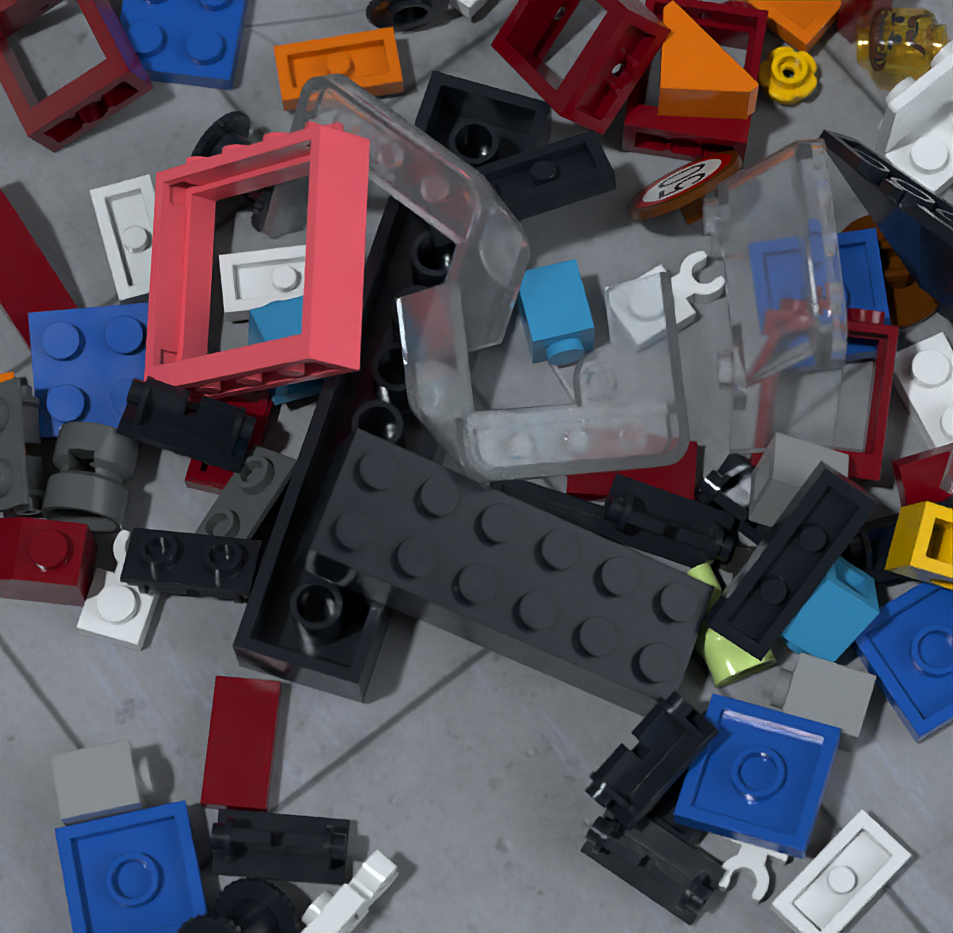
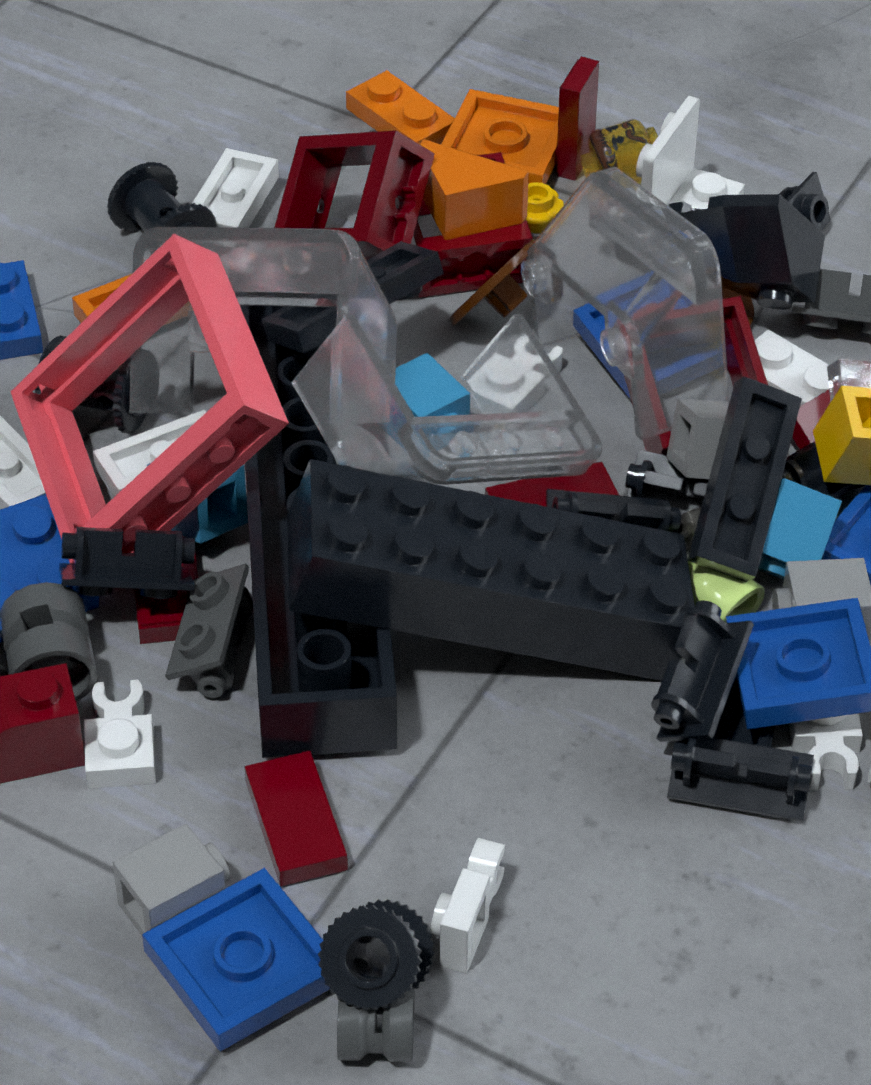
camera: 25 degrees left, 25 degrees down
(191, 561) = (214, 661): black hinge -> none
(280, 847) = (402, 873): black hinge -> none

